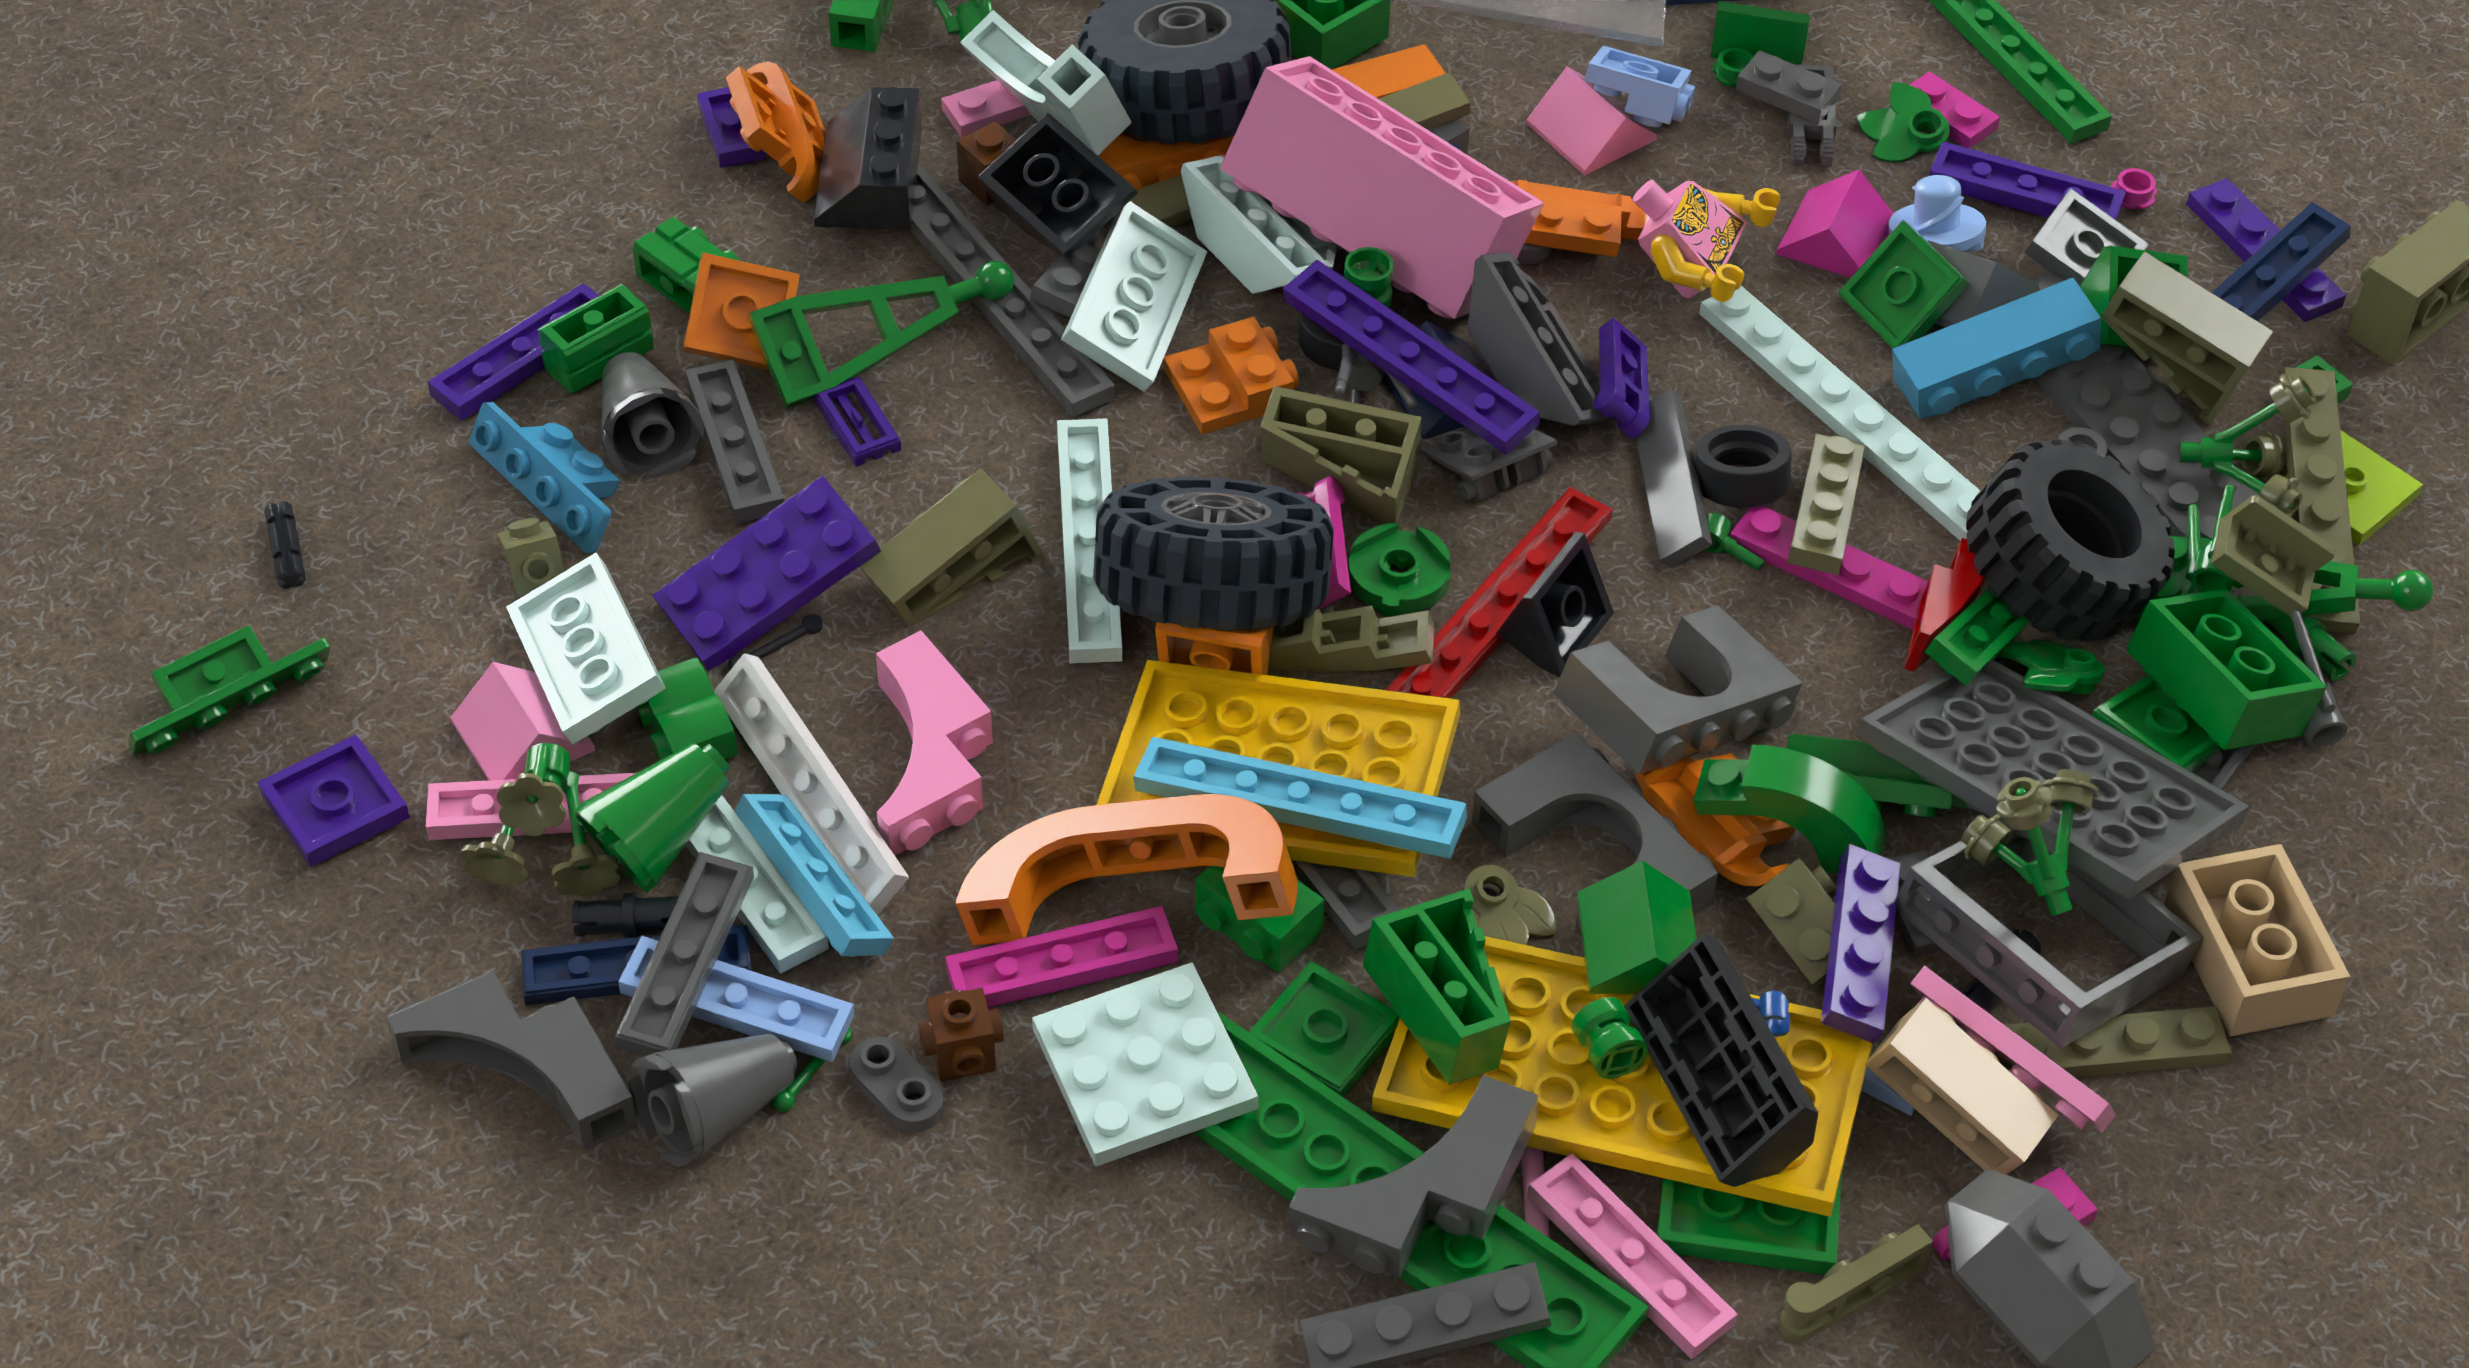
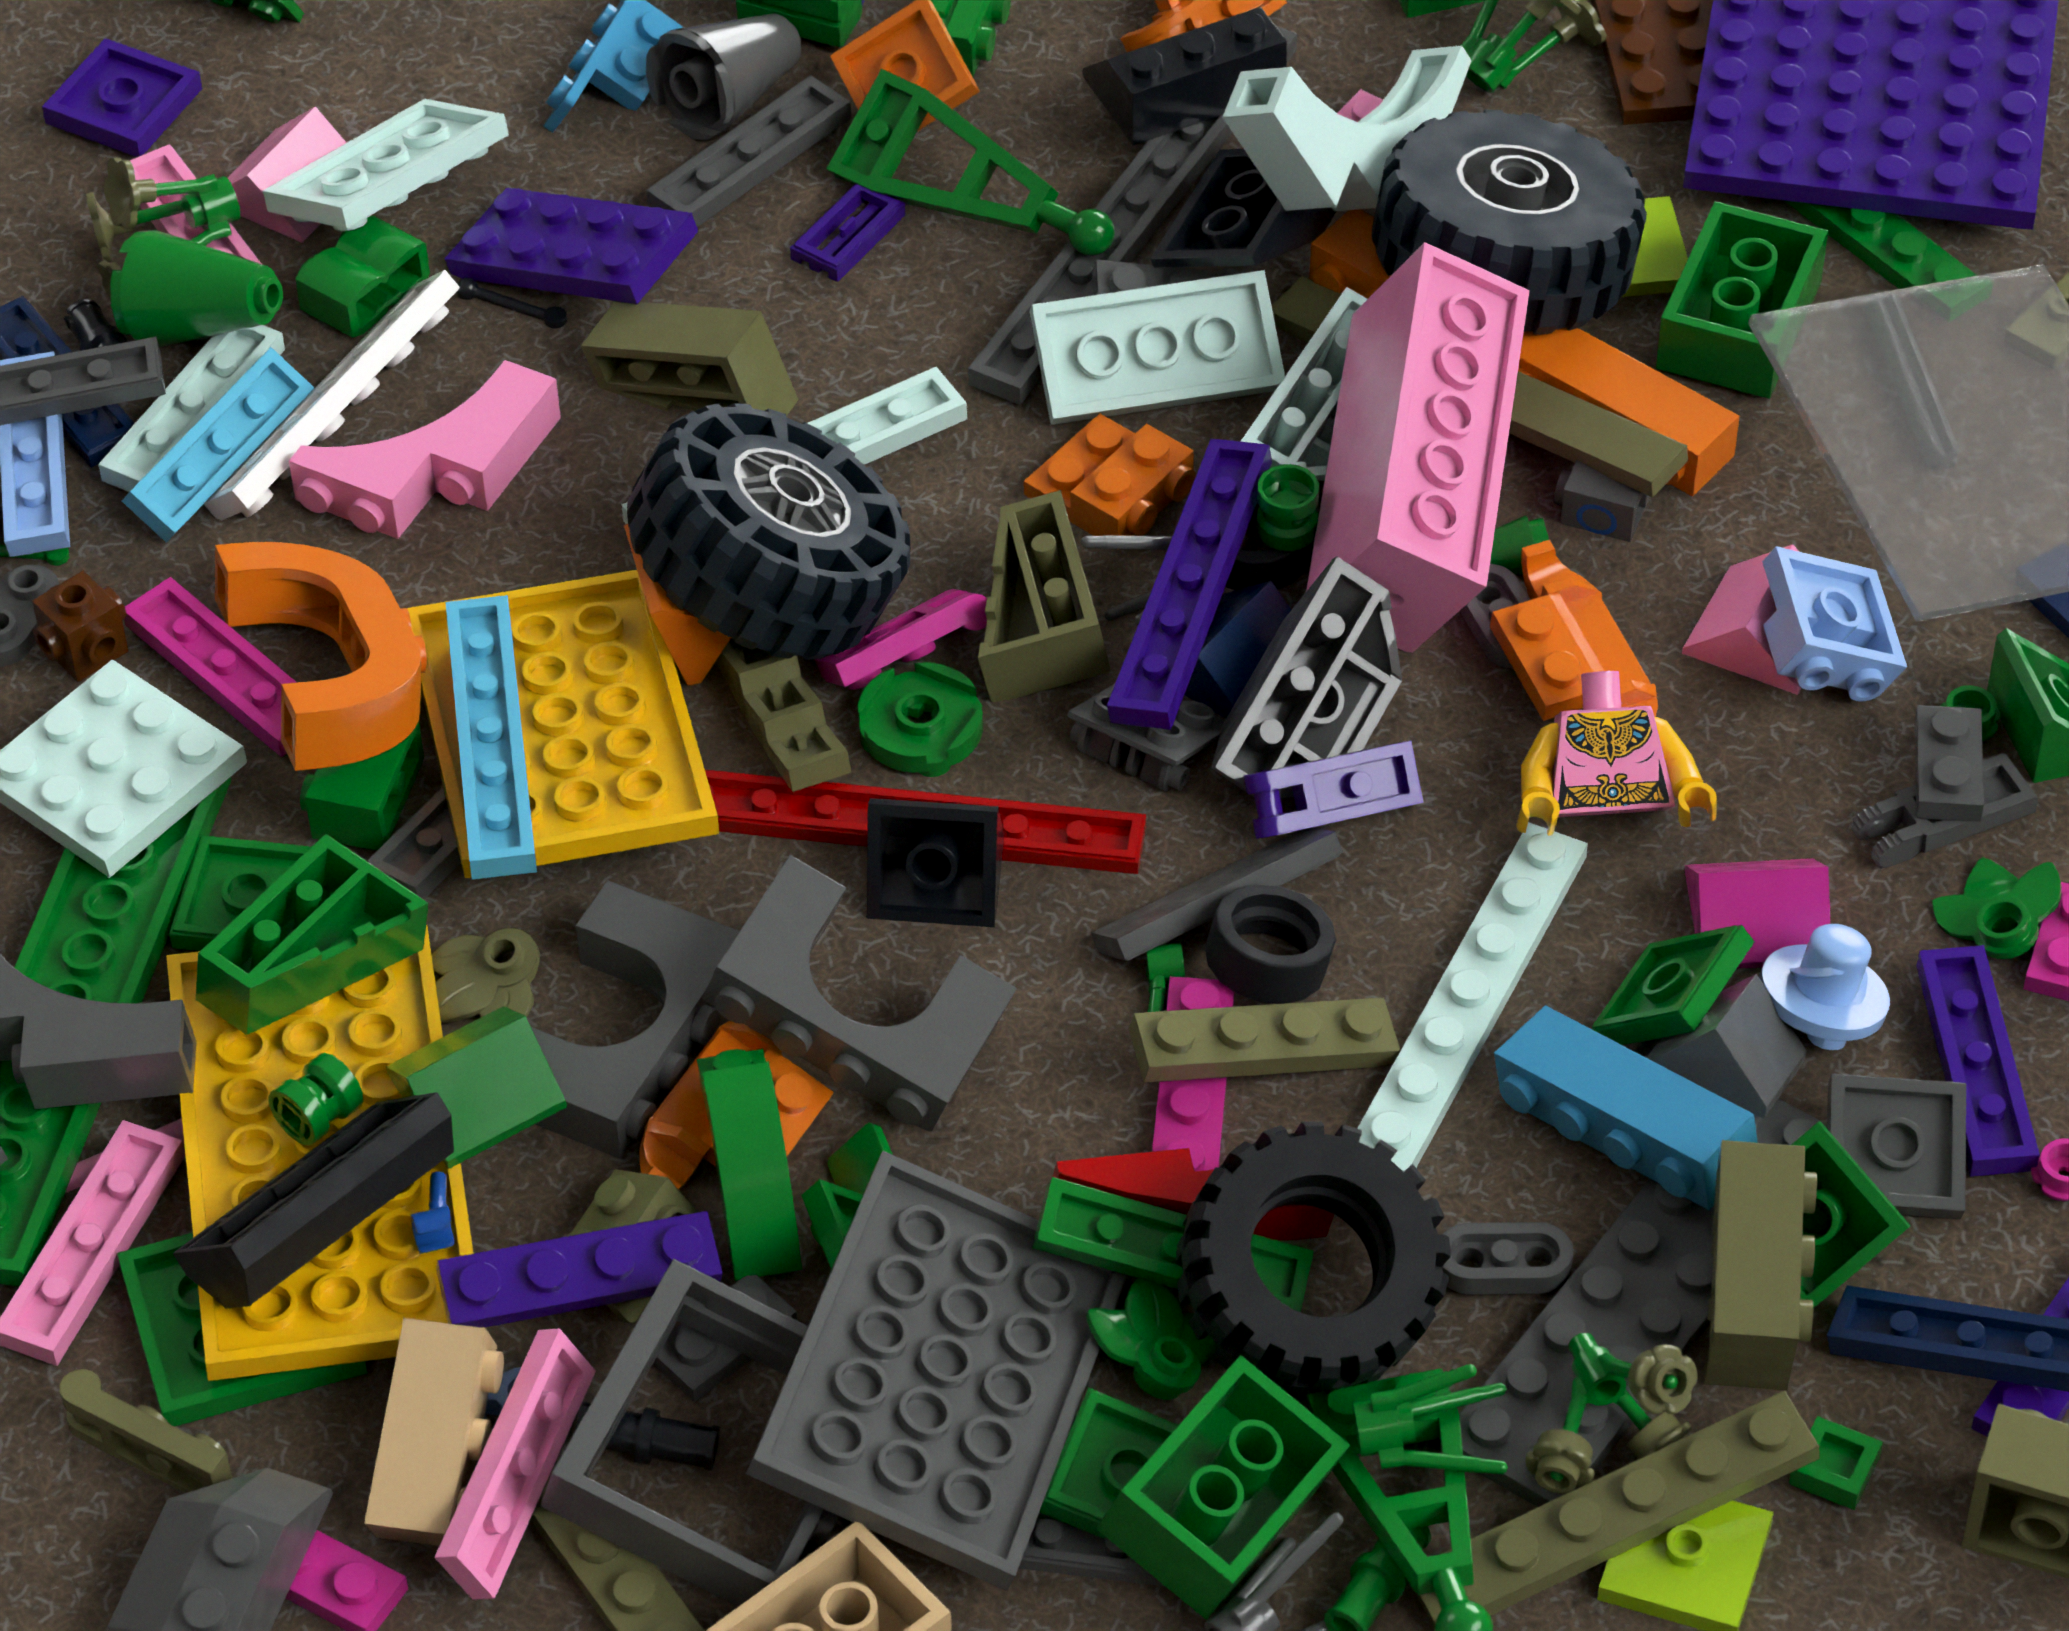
camera: 65 degrees right, 0 degrees up
(531, 554) = (503, 78): olive bracket -> none
(2026, 806) = (755, 1316): olive plant -> none
(2270, 554) = (1389, 1450): olive bracket -> none

